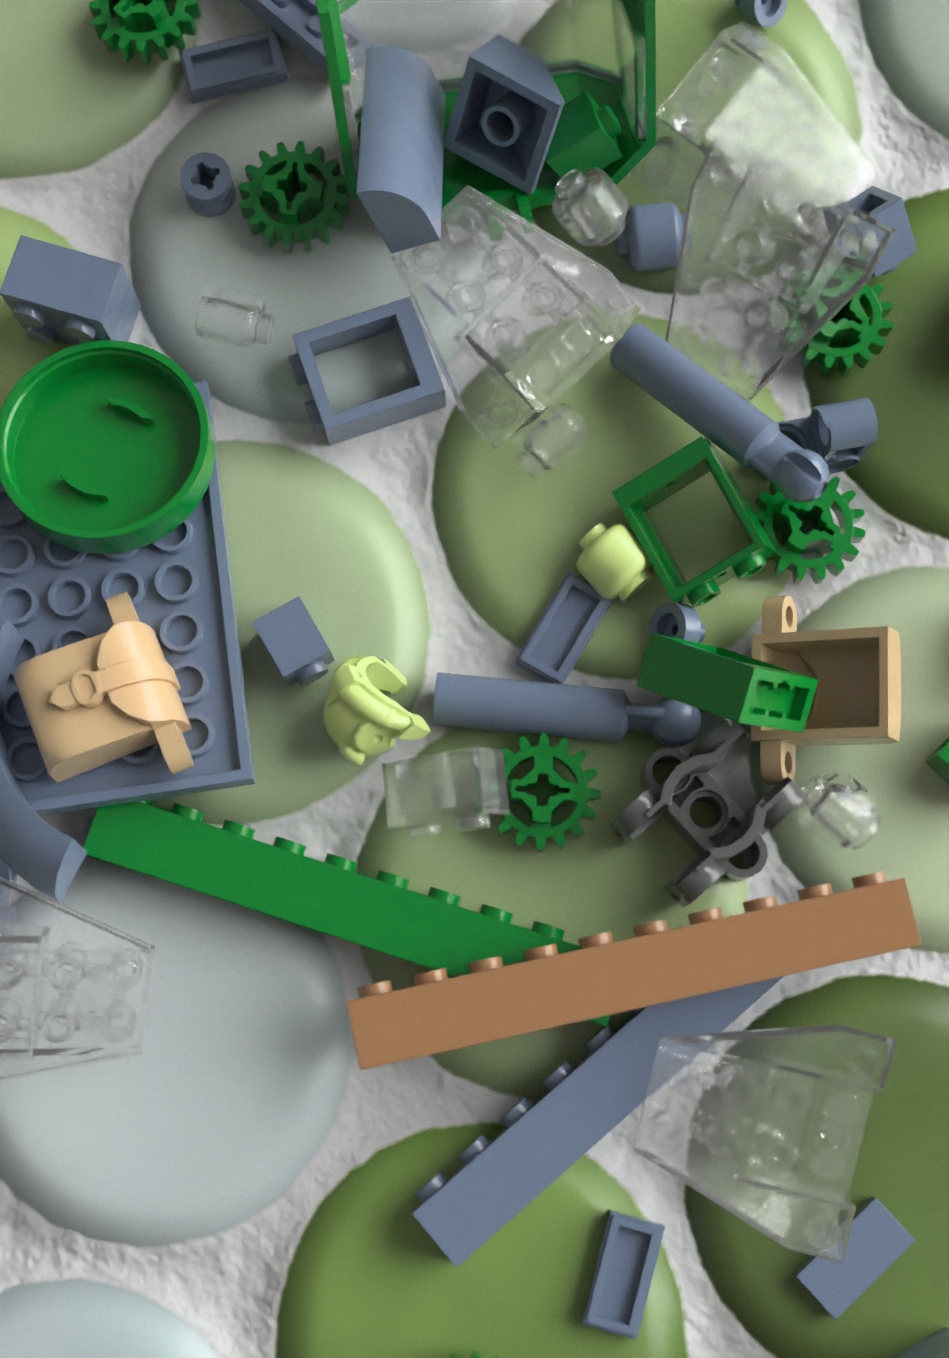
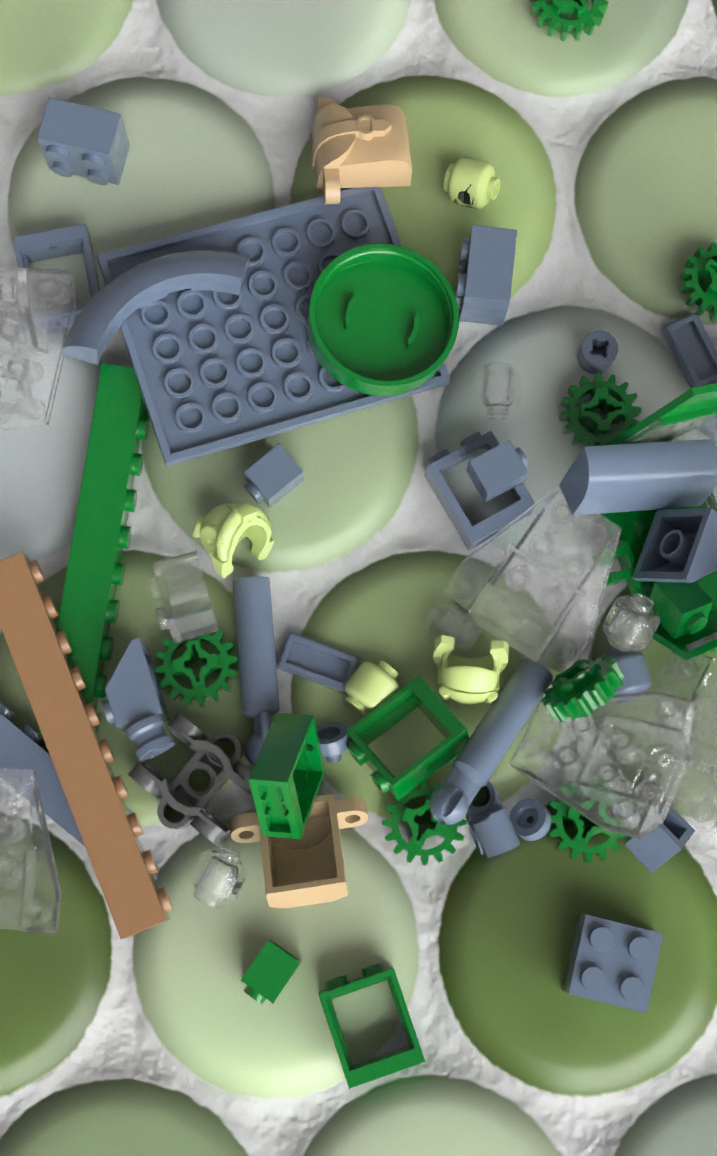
camera: 75 degrees right, 0 degrees up
(104, 698) = (203, 355): tan piece -> none
(355, 330) = (498, 470): none -> sand blue brick
(571, 878) = (134, 689): none -> sand blue slope
(626, 426) = (469, 679): none -> yellowish green helmet
(645, 862) = (150, 737): none -> sand blue wheel
(671, 278) = (583, 688): none -> green gear
(815, 380) = (530, 819): none -> sand blue tile

